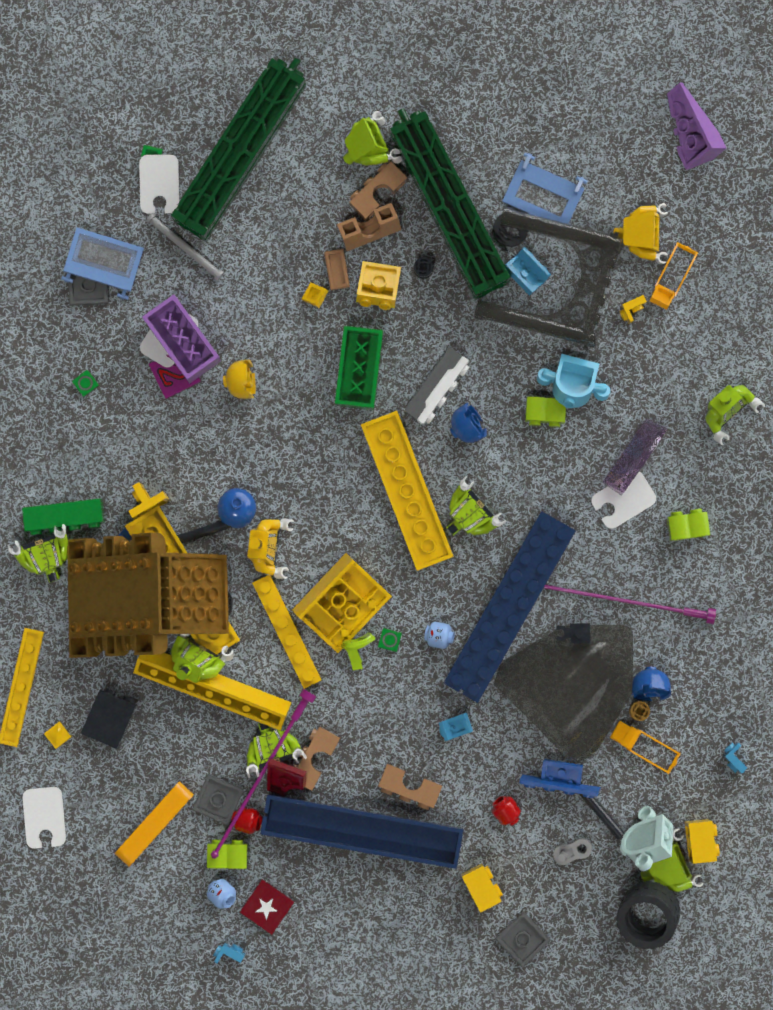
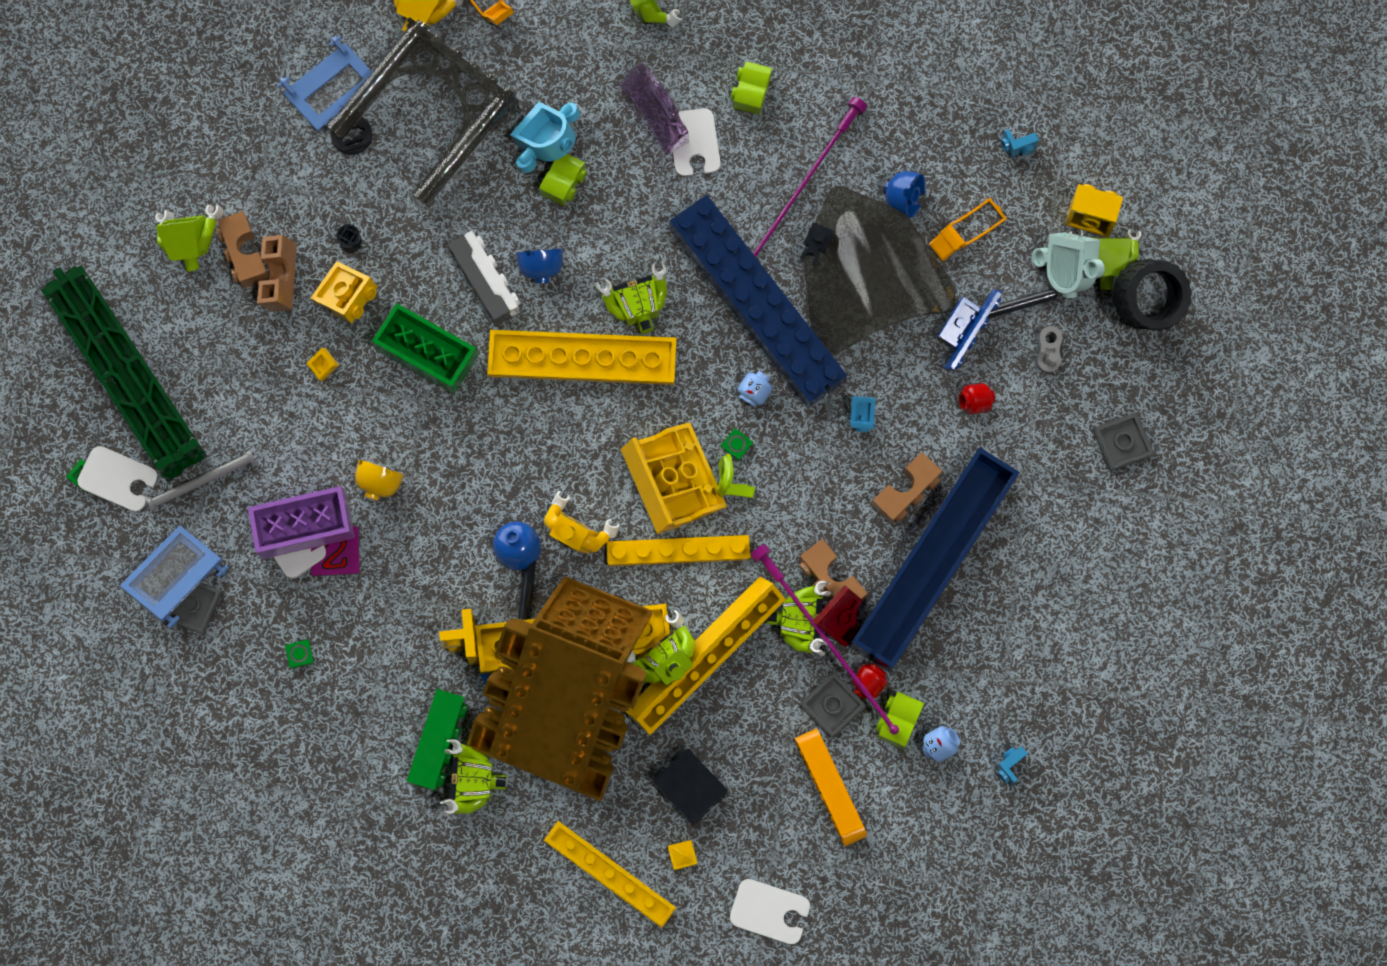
camera: 75 degrees left, 10 degrees down
(267, 906) = (975, 701): dark red tile -> none
(337, 269) = (306, 330): medium nougat tile -> none
(449, 204) = (294, 179): dark green piece -> none
(481, 887) = (1050, 456): yellow brick -> none
(527, 271) = (404, 133): dark azure bracket -> none
(634, 305) = (494, 51): yellow bracket -> none
(639, 711) = (926, 222): pearl gold wheel -> none

